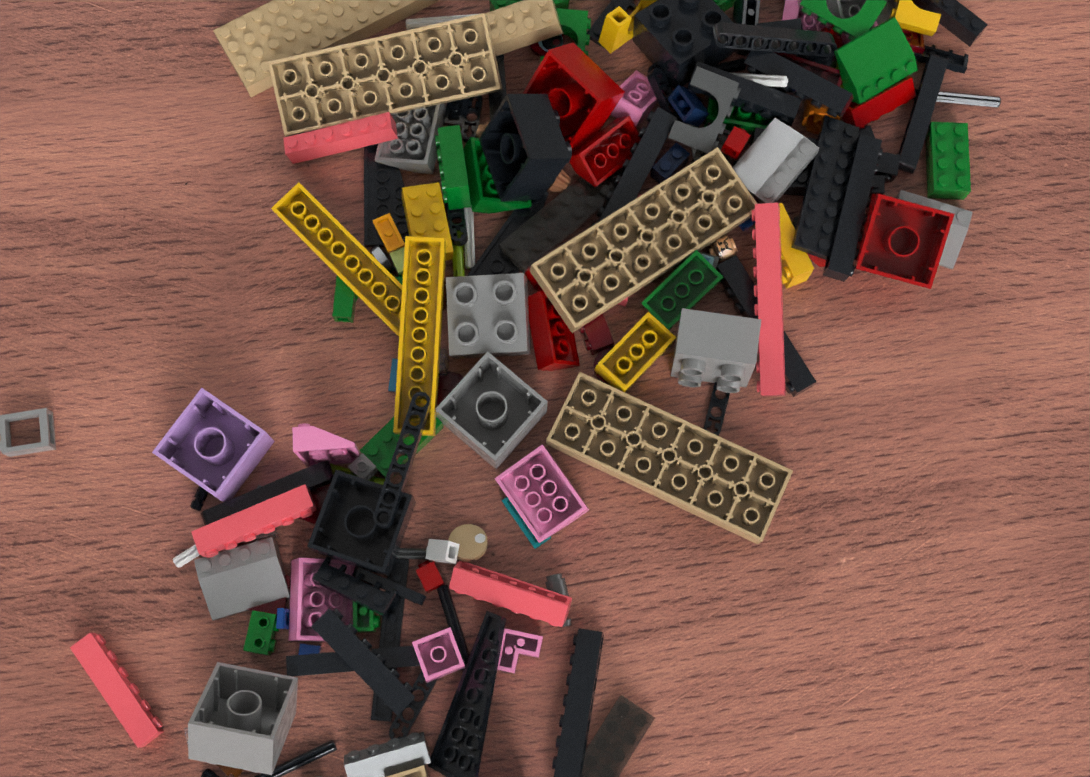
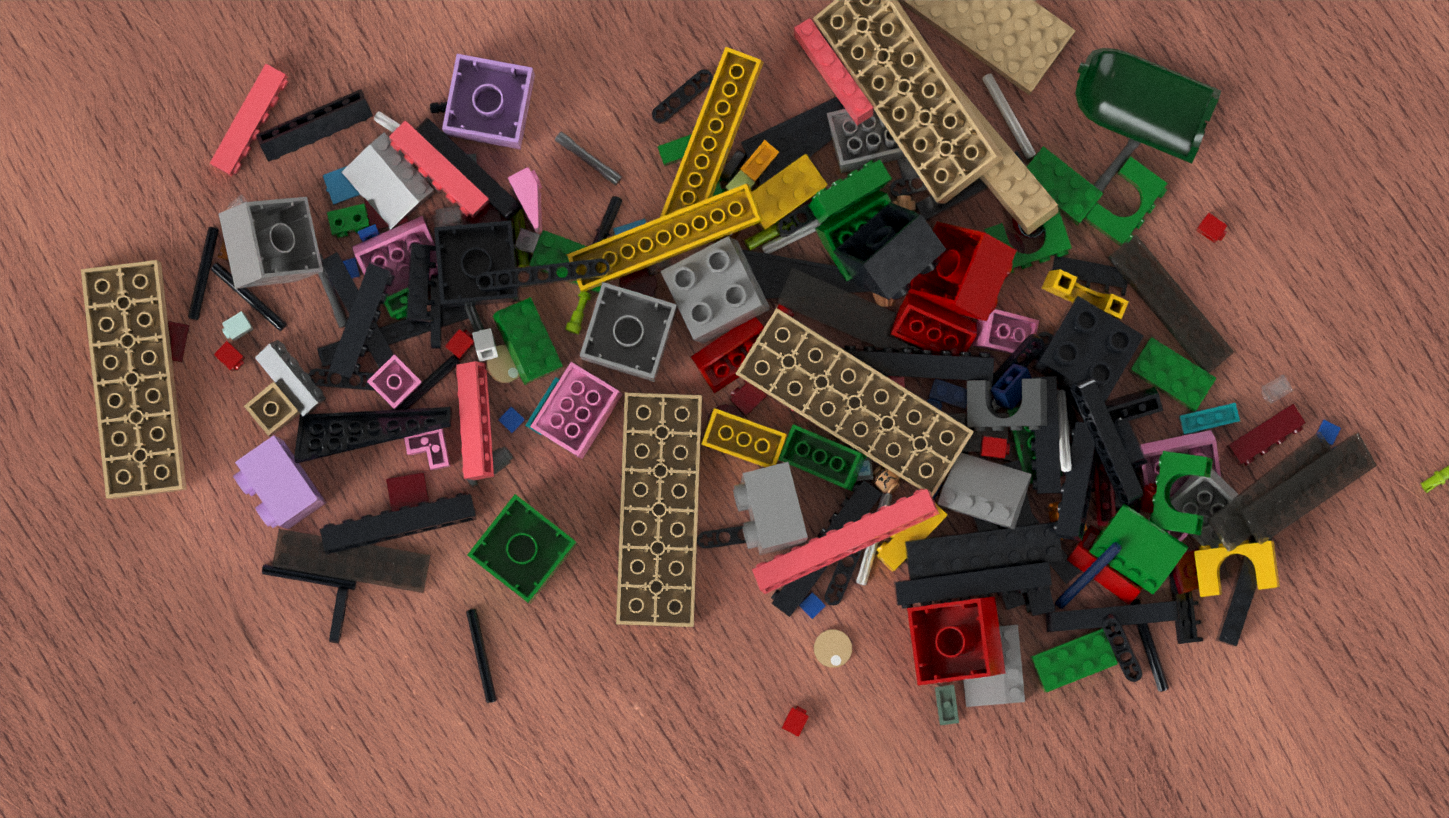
camera: 70 degrees right, 10 degrees up
(154, 626) = (314, 125): none -> black brick
(225, 629) = (339, 186): none -> dark azure piece
(293, 395) = (605, 171): none -> dark grey piece
(297, 279) = (680, 94): none -> black beam
(302, 536) = (447, 217): none -> clear brick
(347, 682) = (338, 310): none -> dark grey piece
(385, 398) = (608, 219): none -> black axle
(456, 511) = (527, 341): none -> green brick
(461, 463) = (574, 325): none -> lime piece
(523, 560) = (511, 419): none -> blue tile
(548, 691) = (407, 491): none -> dark red tile
(655, 598) = (522, 549): none -> green brick
(738, 687) = (481, 656): none -> black axle
(788, 295) = (871, 550): none -> white axle
(794, 317) = (841, 569): none -> black beam
(812, 360) = (812, 605): none -> blue tile
(857, 359) = (832, 648): none -> tan tile
(880, 111) = (1088, 575): none -> dark blue axle
(913, 419) = (795, 720): none -> red brick
(949, 283) = (946, 704): none -> sand green plate
(953, 114) = (1125, 646): none -> black beam

